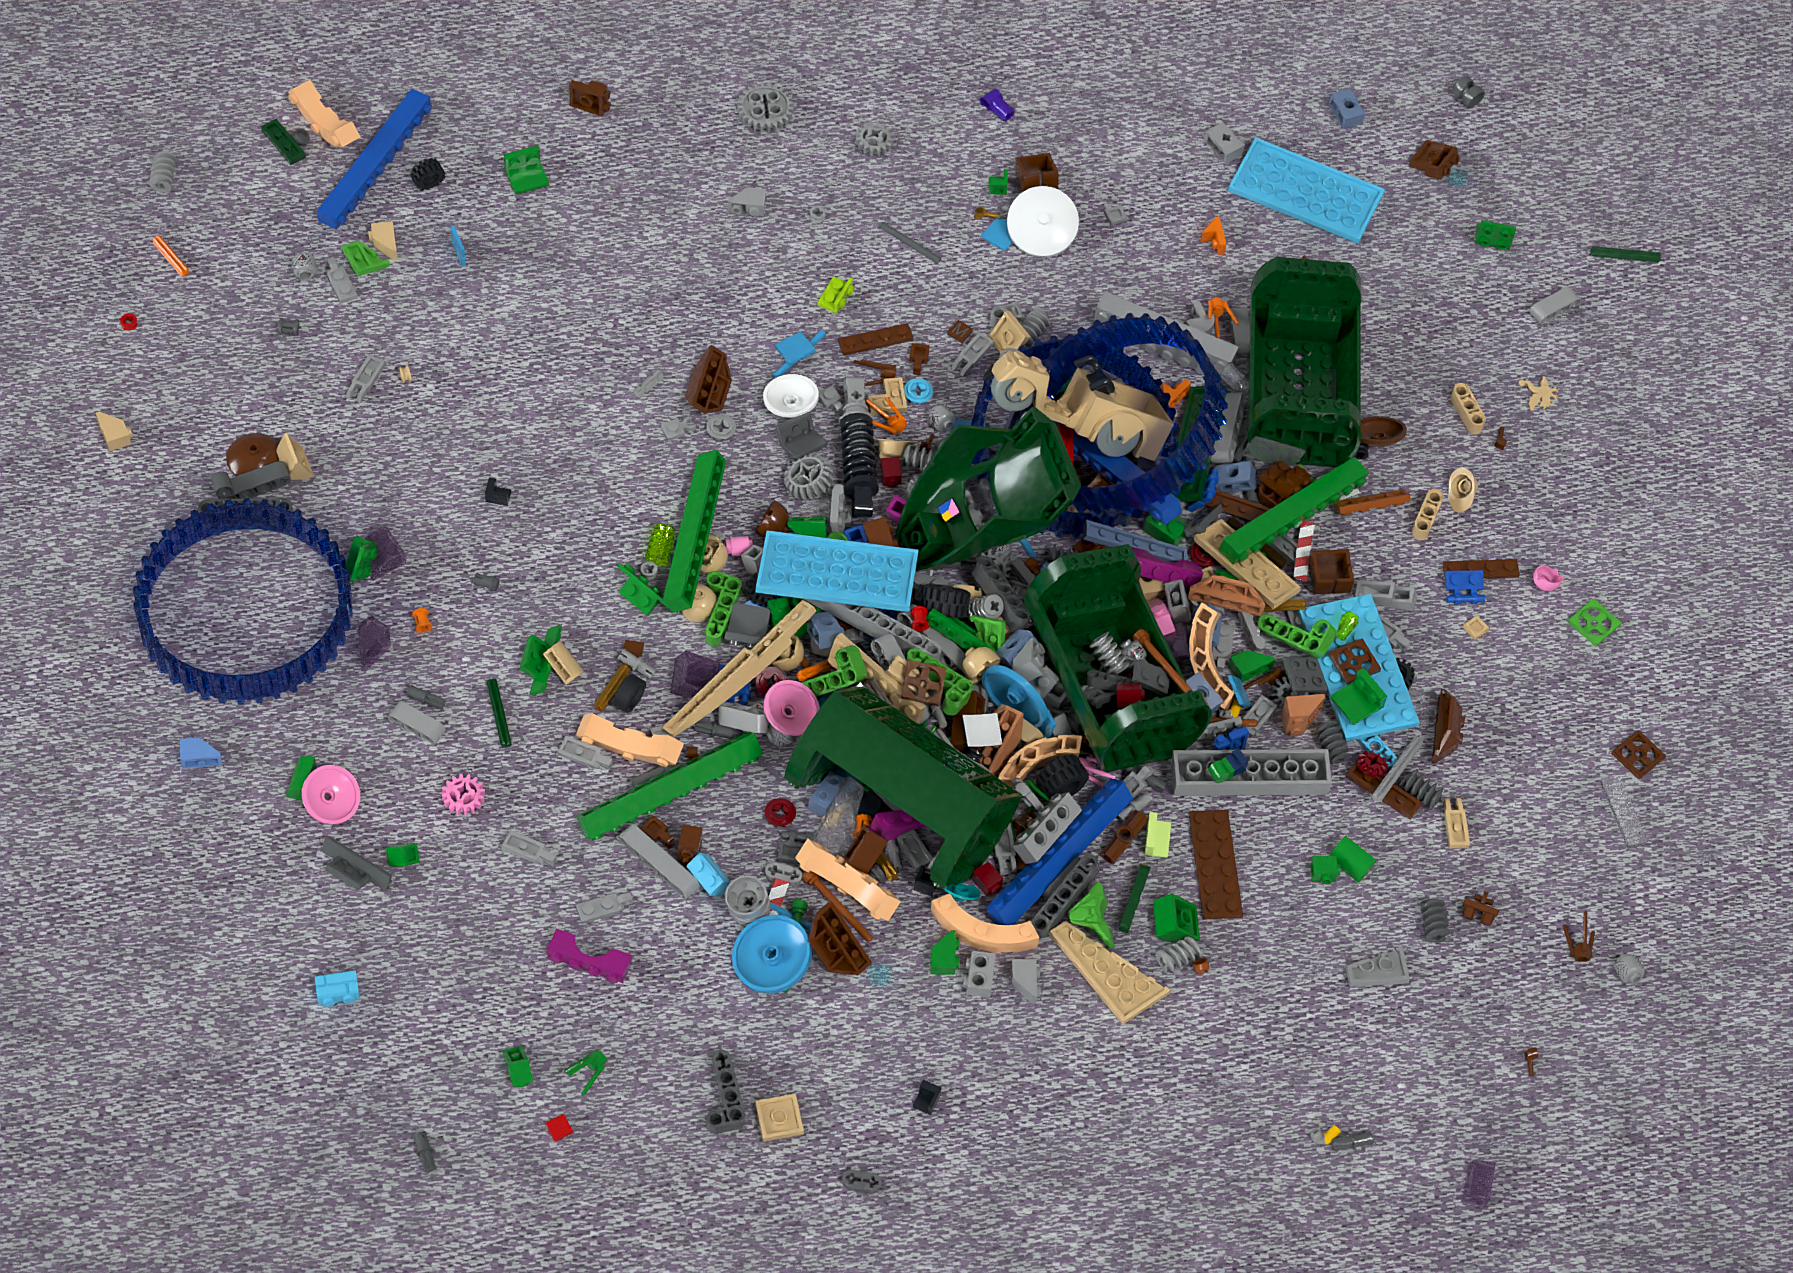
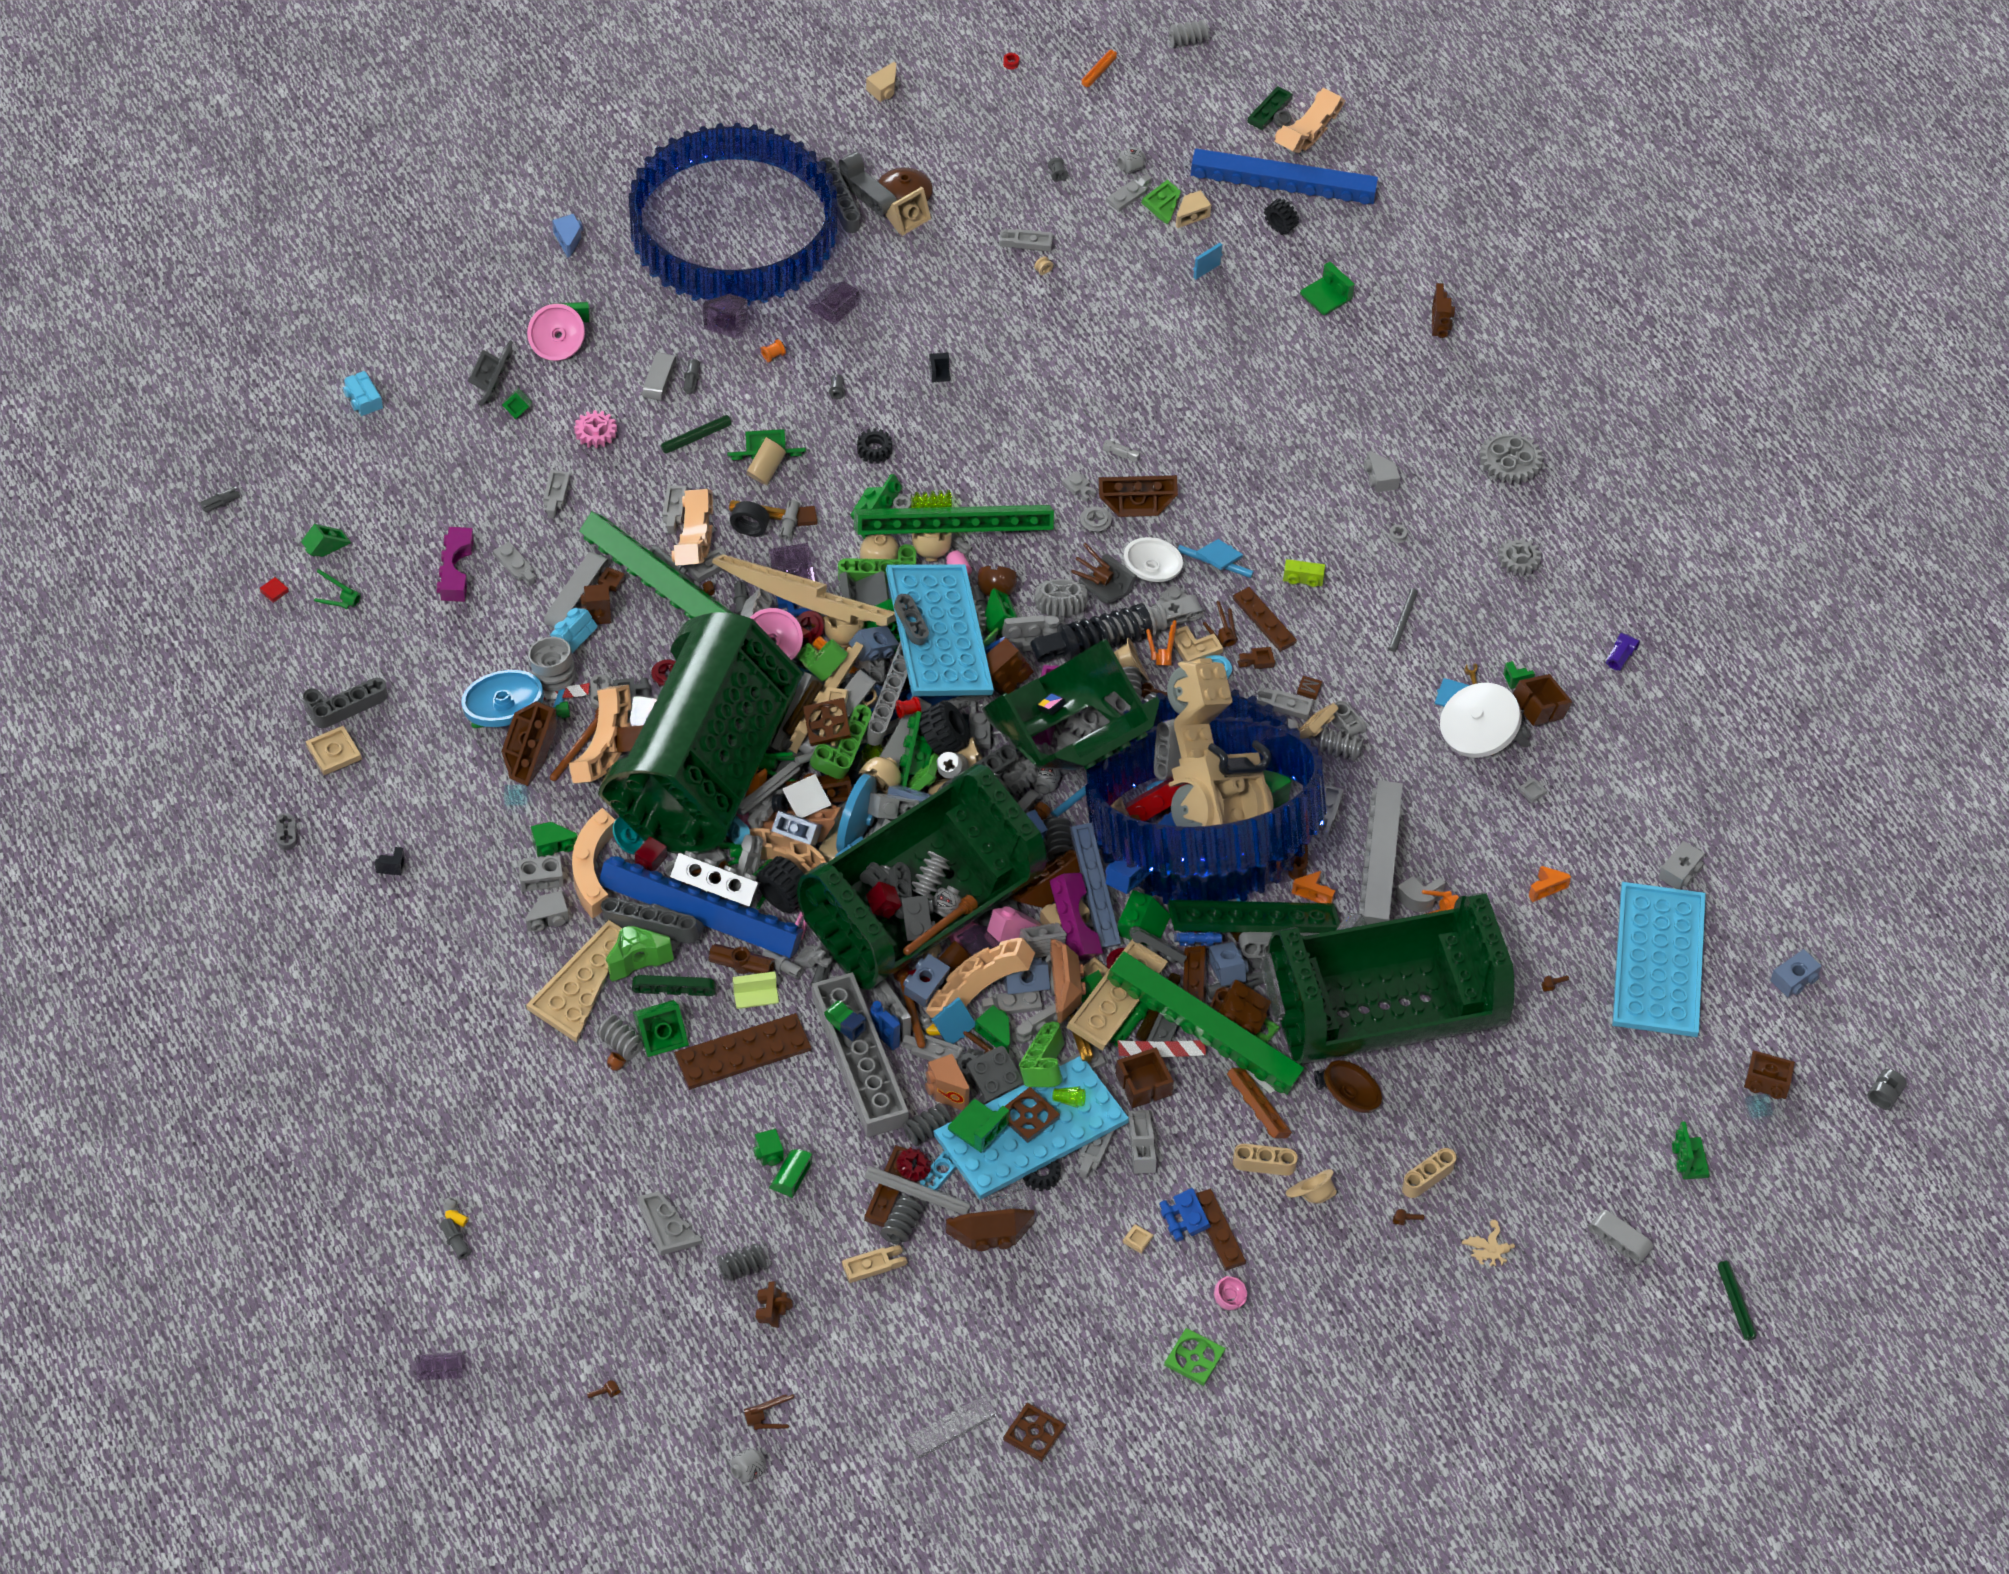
camera: 75 degrees right, 5 degrees down
(360, 558) = (810, 283): green bracket -> none
(572, 561) = (874, 454): none -> black tyre
(796, 436) = (1101, 574): none -> reddish brown plant
(834, 579) = (911, 611): none -> dark grey beam
(1019, 745) = (796, 828): none -> sand blue brick

